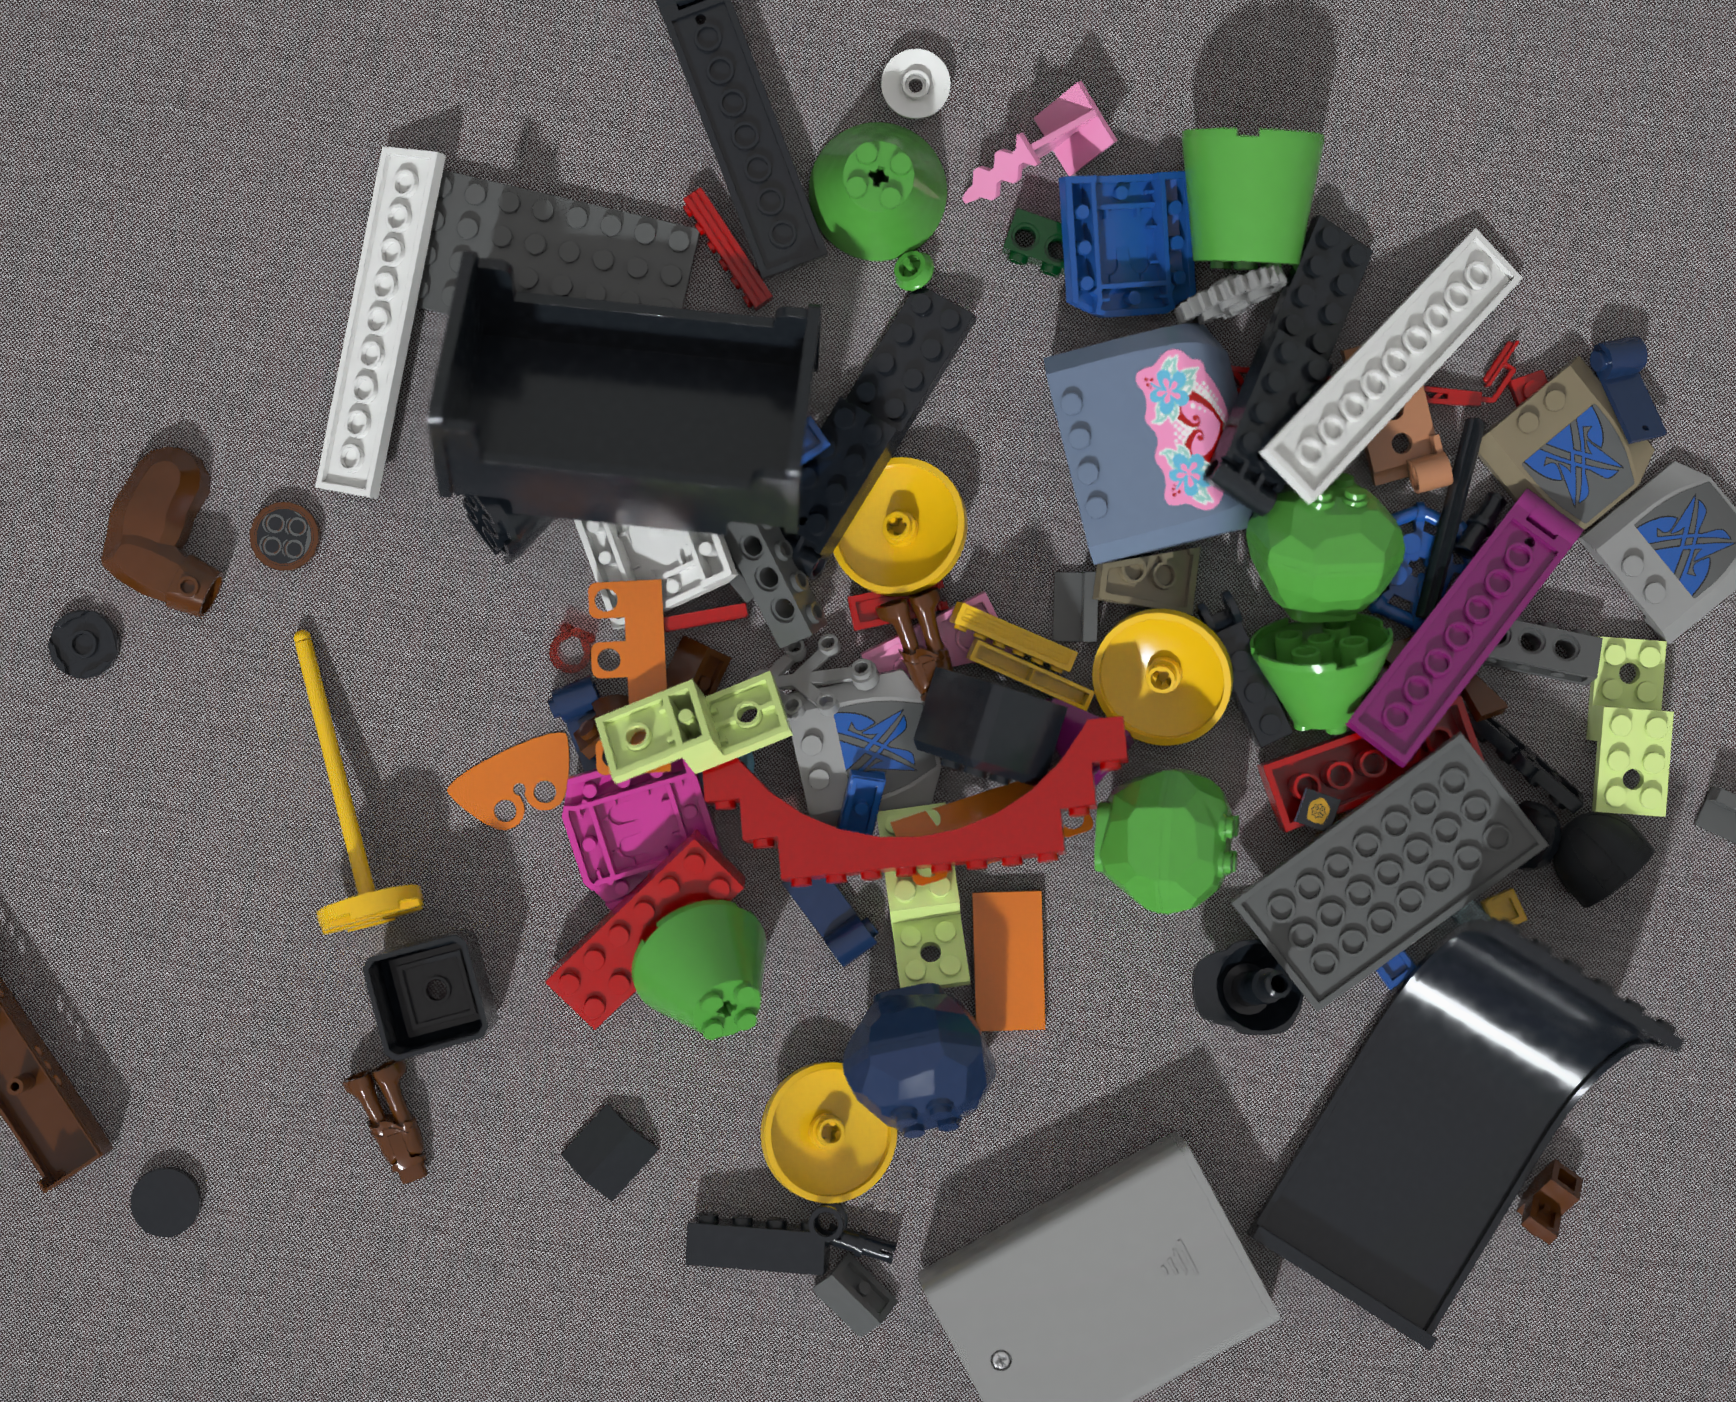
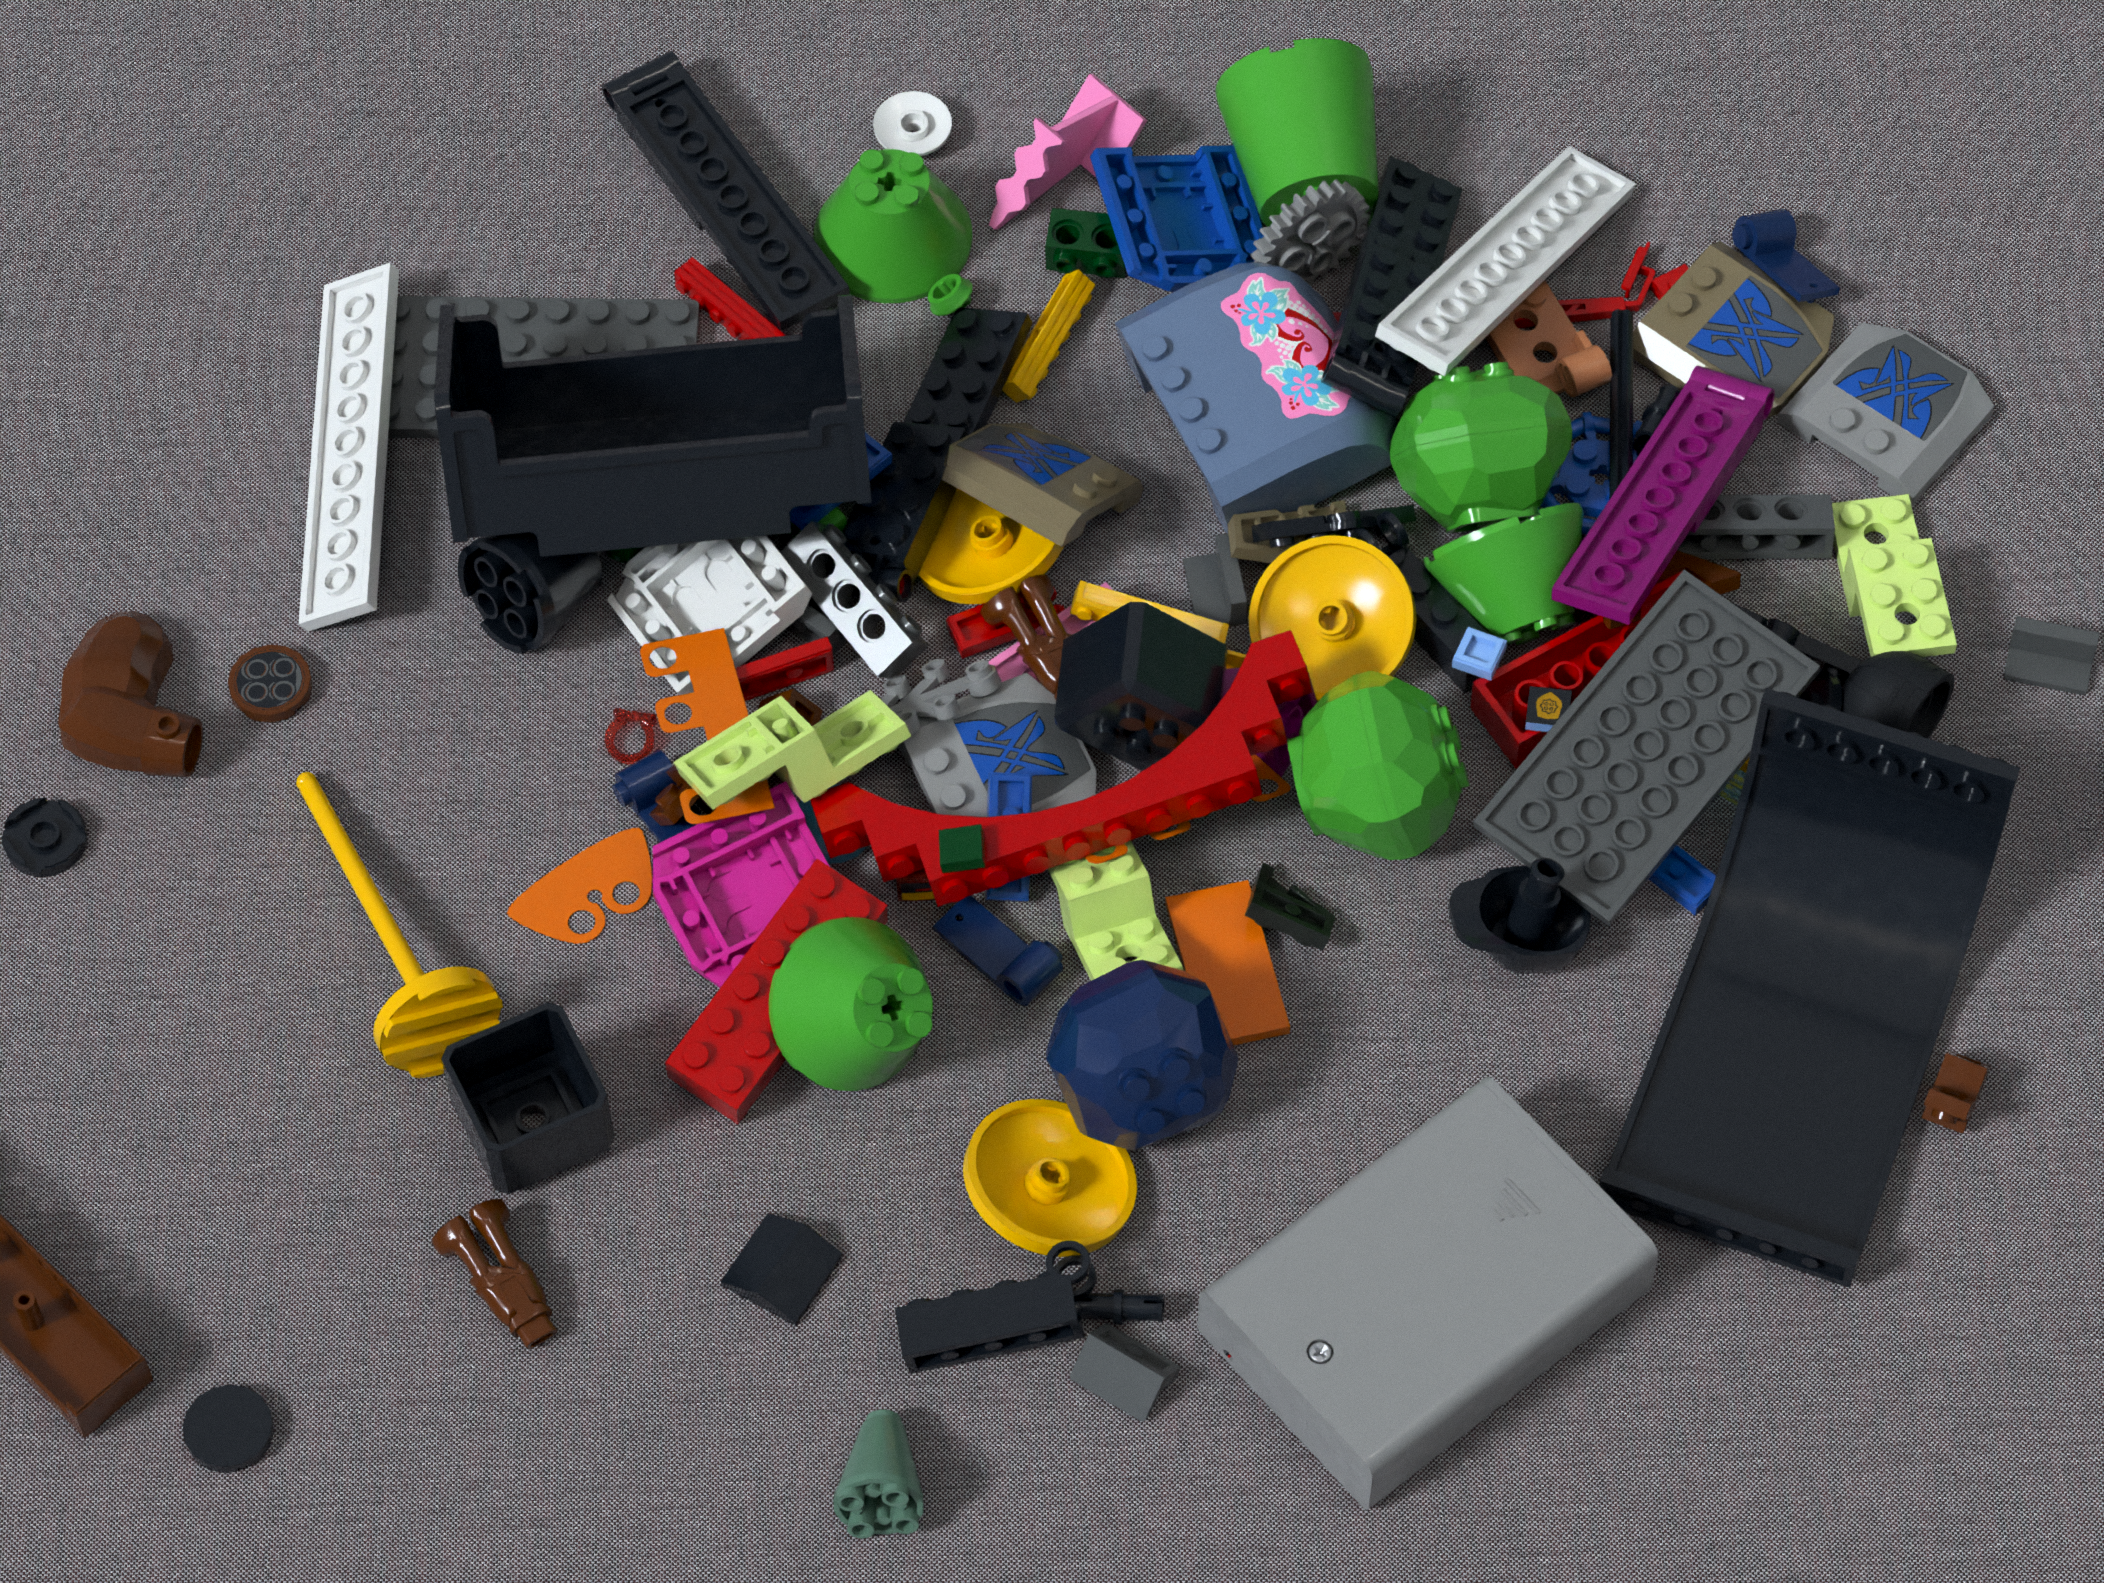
camera: 10 degrees left, 30 degrees down
(651, 1353) = (880, 1480): none -> sand green cone
(812, 860) = (961, 848): none -> dark green tile
(946, 491) = (1038, 479): none -> dark tan wedge
(989, 328) = (1048, 335): none -> yellow piece
(1066, 927) = (1288, 911): none -> pearl dark grey wing
(1188, 585) = (1283, 532): none -> black hinge
(1274, 744) = (1479, 653): none -> light blue tile

